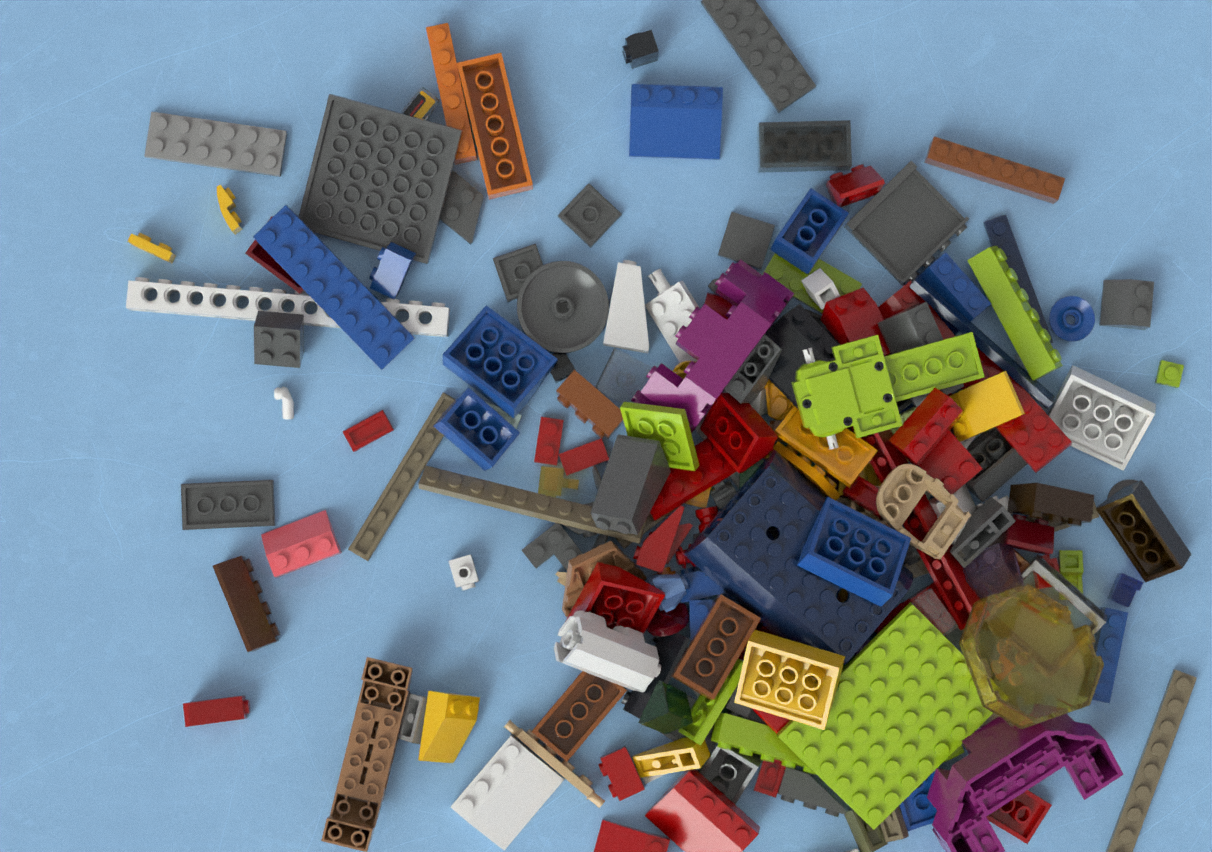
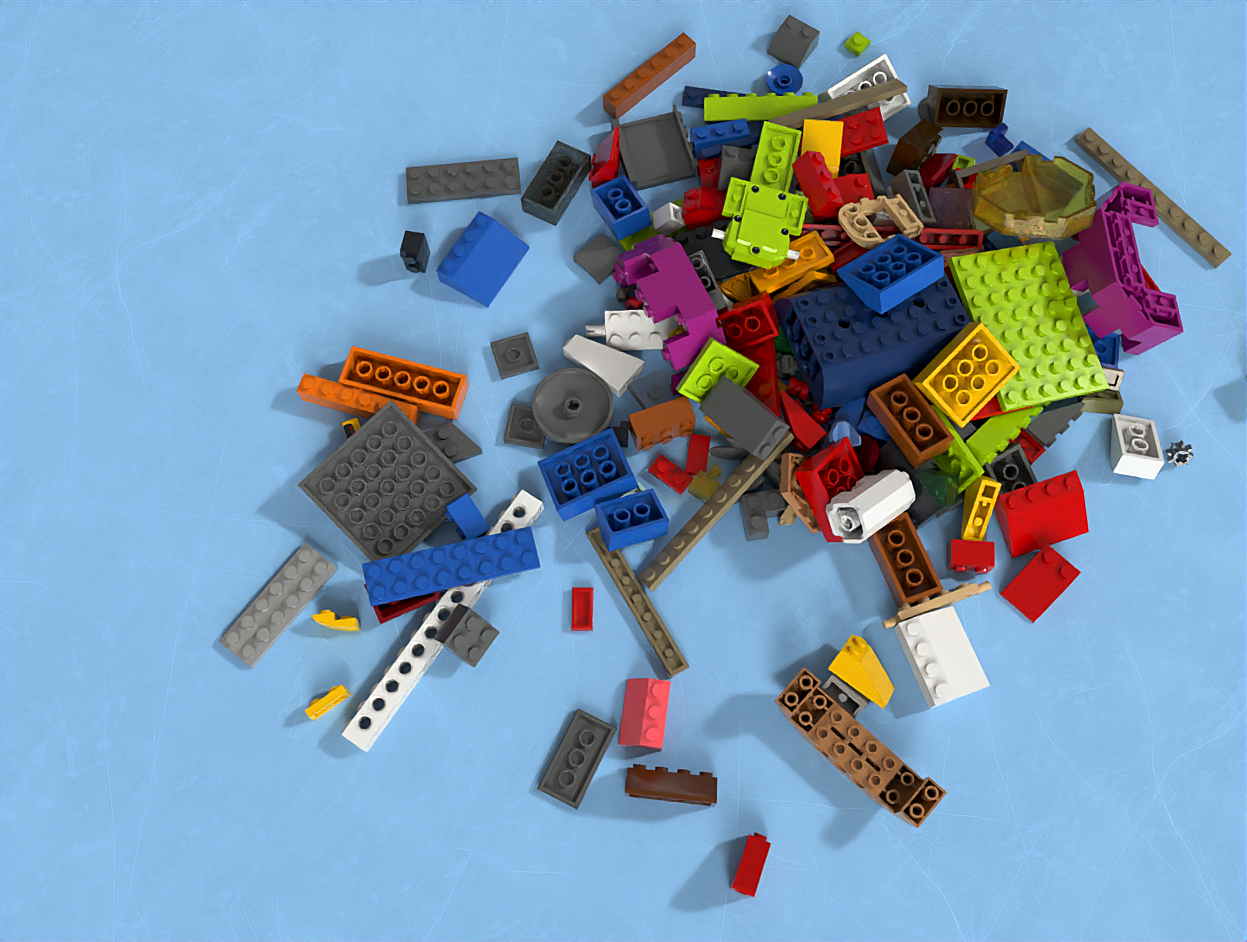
camera: 55 degrees left, 15 degrees down
(287, 402) = (520, 659): white arm -> none
(464, 572) = (740, 592): white brick -> none
(1055, 396) = (842, 104): none -> dark tan tile

